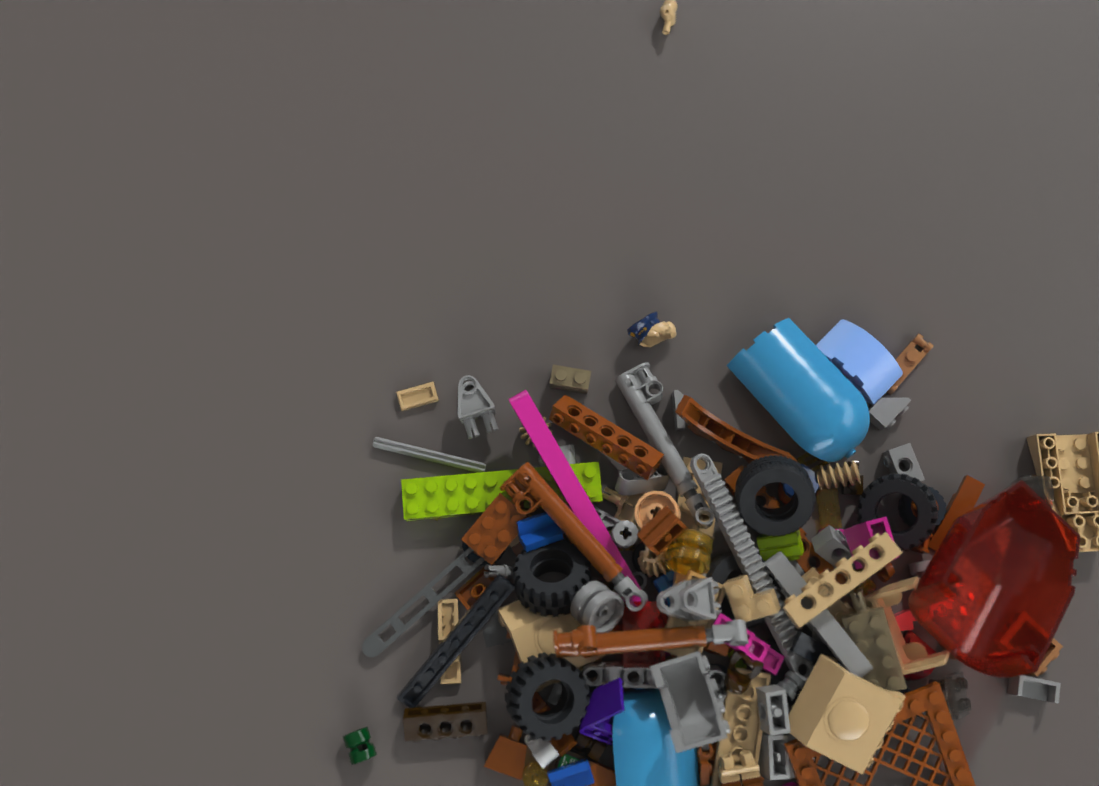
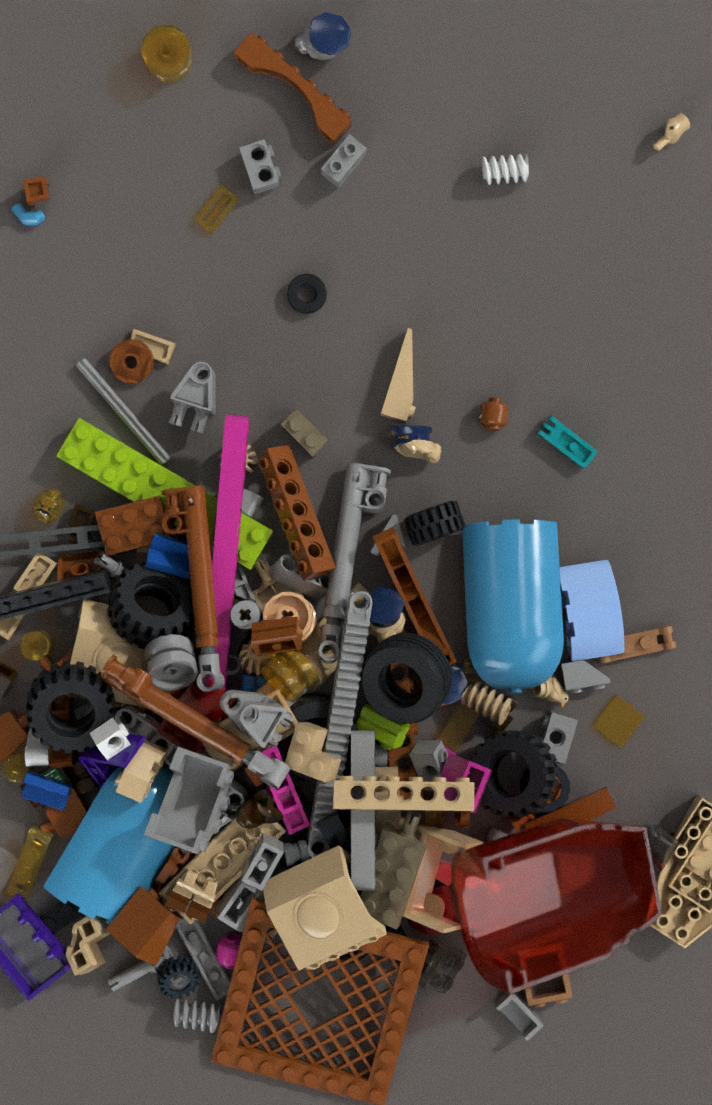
camera: 40 degrees right, 10 degrees up
(260, 342) = (36, 190): none -> dark orange panel
(266, 367) = (28, 218): none -> dark azure arm
(289, 189) = (158, 43): none -> clear yellow wheel
(358, 151) = (259, 58): none -> dark orange arch
(391, 108) = (324, 37): none -> dark blue piece
(397, 287) = (223, 215): none -> clear yellow tile
(405, 224) = (257, 167): none -> light grey brick
(406, 426) = (144, 359): none -> dark orange tile
(422, 560) = (48, 505): none -> clear yellow head
(452, 552) = (80, 517): none -> dark brown plate
(463, 179) = (343, 161): none -> light grey brick
(485, 670) = (37, 645): none -> clear yellow wheel
(501, 295) = (297, 303): none -> black tyre
(576, 110) = (505, 169): none -> white piece
(595, 697) = (110, 738): none -> white brick
(615, 304) = (400, 392): none -> tan slope
(637, 713) = (141, 771): none -> tan brick
(690, 276) = (494, 414): none -> dark orange head
(708, 375) = (434, 523): none -> black tyre
(724, 460) = (386, 613): none -> dark blue piece
(754, 260) = (568, 442): none -> teal hinge
(875, 436) = (552, 691): none -> tan animal
(934, 425) = (618, 721): none -> clear yellow piece

